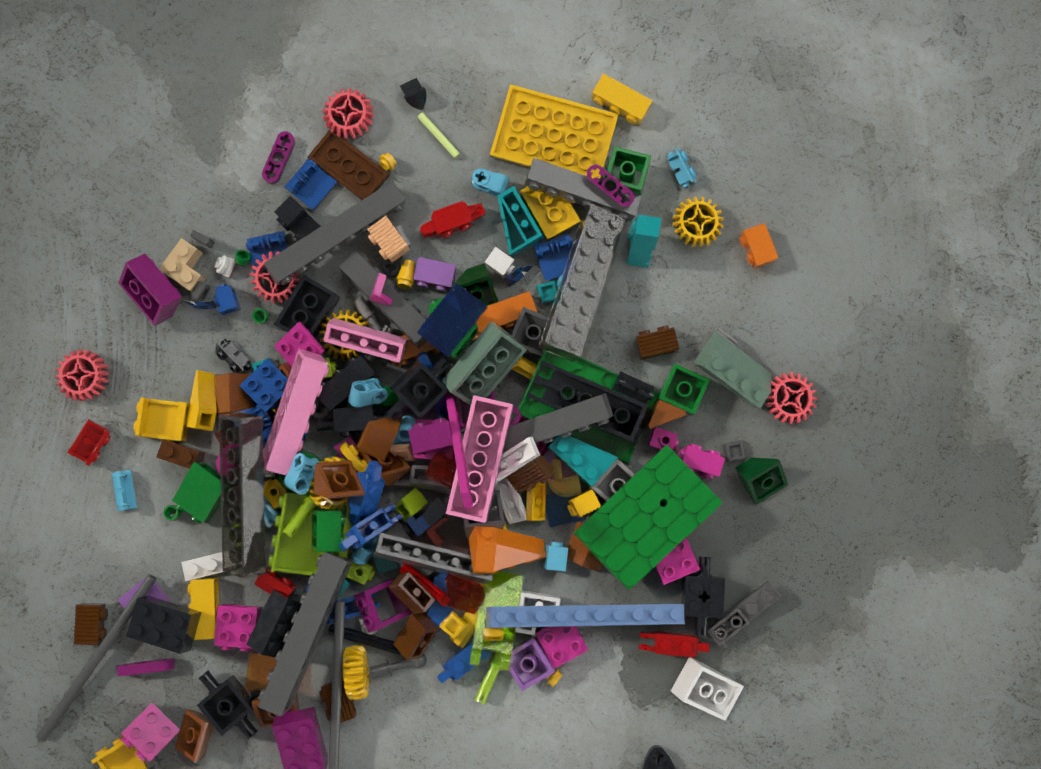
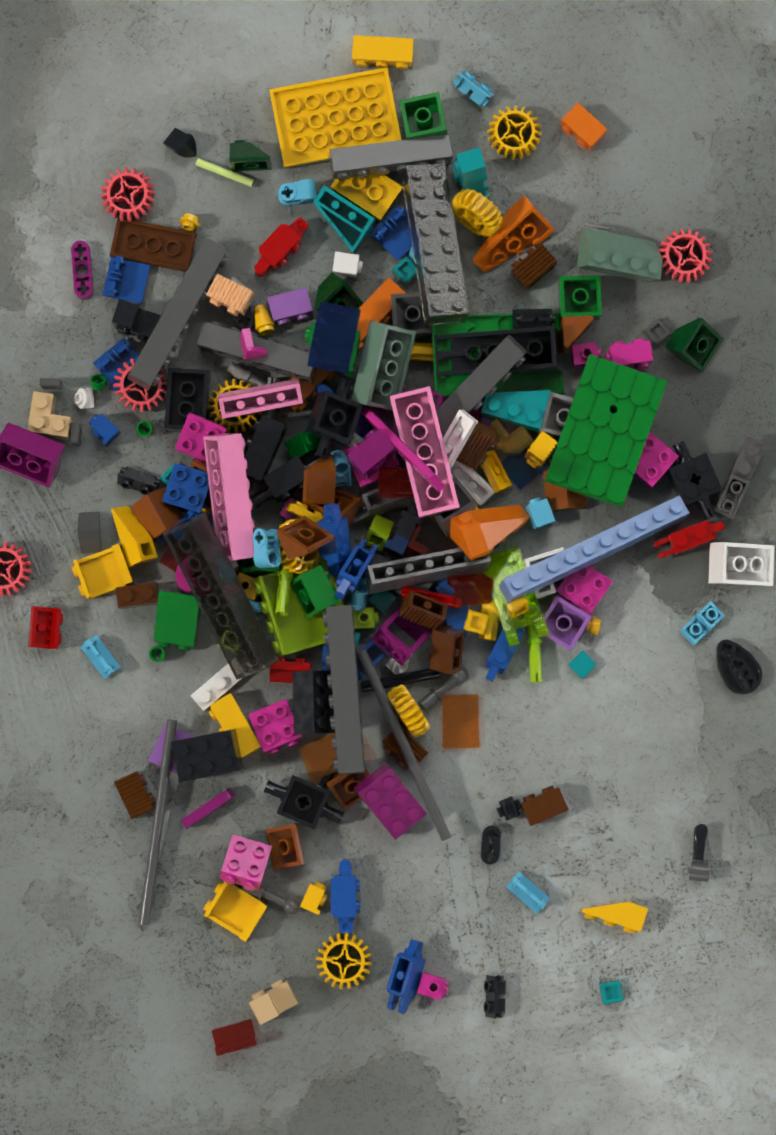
camera: 25 degrees left, 0 degrees up
(169, 379) = (89, 532): none -> dark grey slope
(202, 305) = (82, 446): sticker -> none
(367, 393) = (287, 446): medium azure piece -> none
(398, 700) = (460, 721): none -> clear orange piece
(403, 450) = (347, 485): light nougat tile -> none
(462, 131) = (247, 157): none -> dark green slope
(517, 275) = (368, 269): dark blue sticker -> none
(526, 705) = (582, 664): none -> teal tile
(602, 172) = (418, 147): magenta beam -> none
(631, 273) = (476, 212): none -> yellow gear
(647, 721) = (701, 623): none -> medium azure slope
(658, 305) = (519, 229): none -> orange wedge

